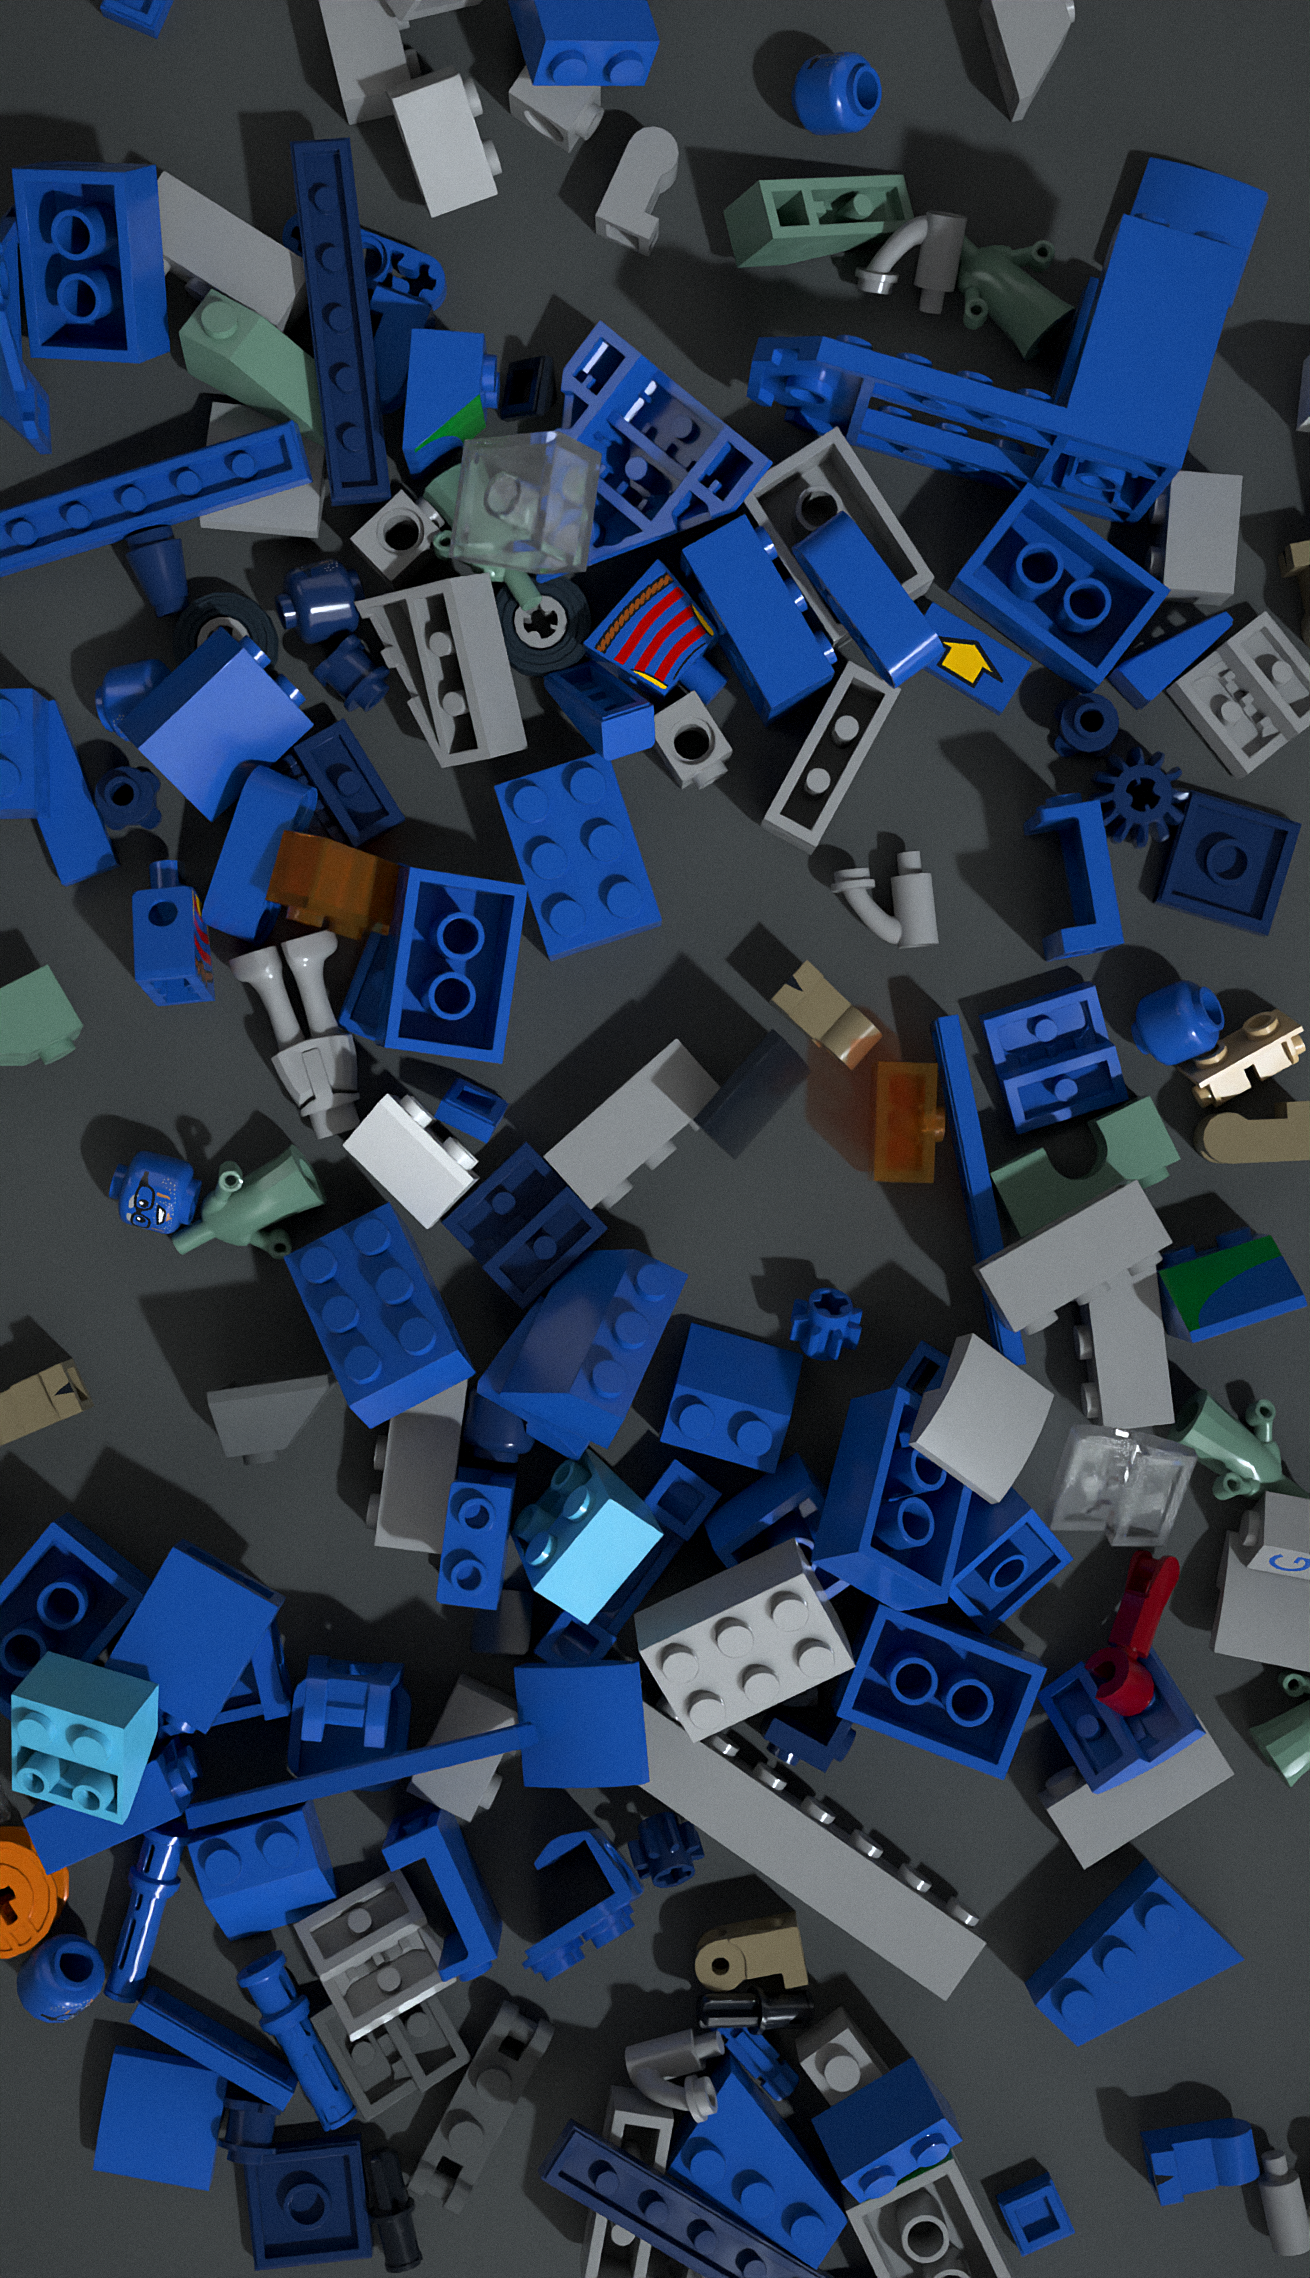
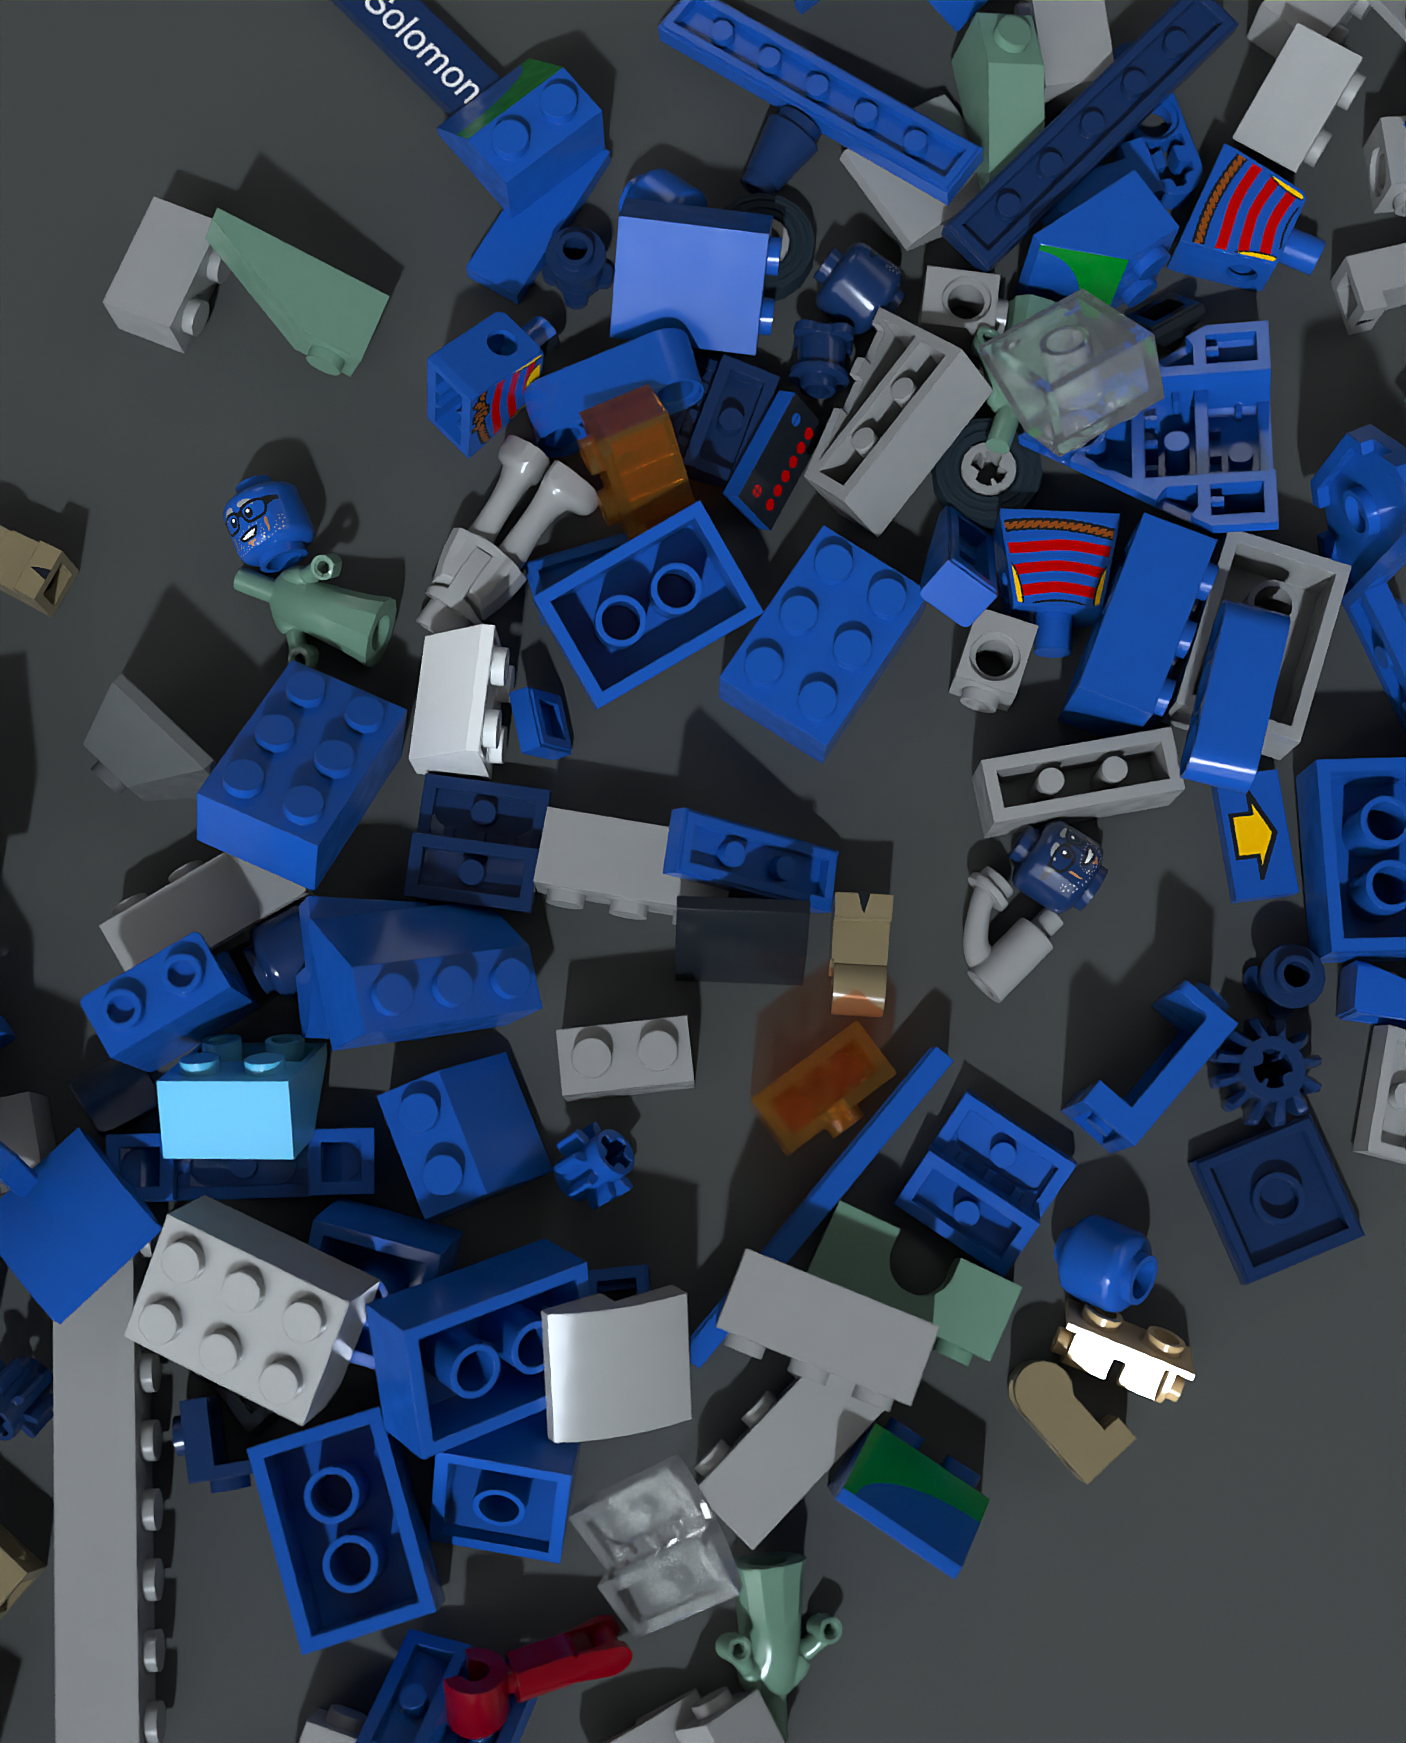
camera: 50 degrees right, 10 degrees down
(406, 775) = (774, 460): none -> black tile
(505, 265) = (1245, 226): none -> blue torso
(701, 1042) = (749, 860): none -> blue tile
(769, 1243) = (625, 1058): none -> light grey brick
(877, 822) = (1057, 866): none -> dark blue head

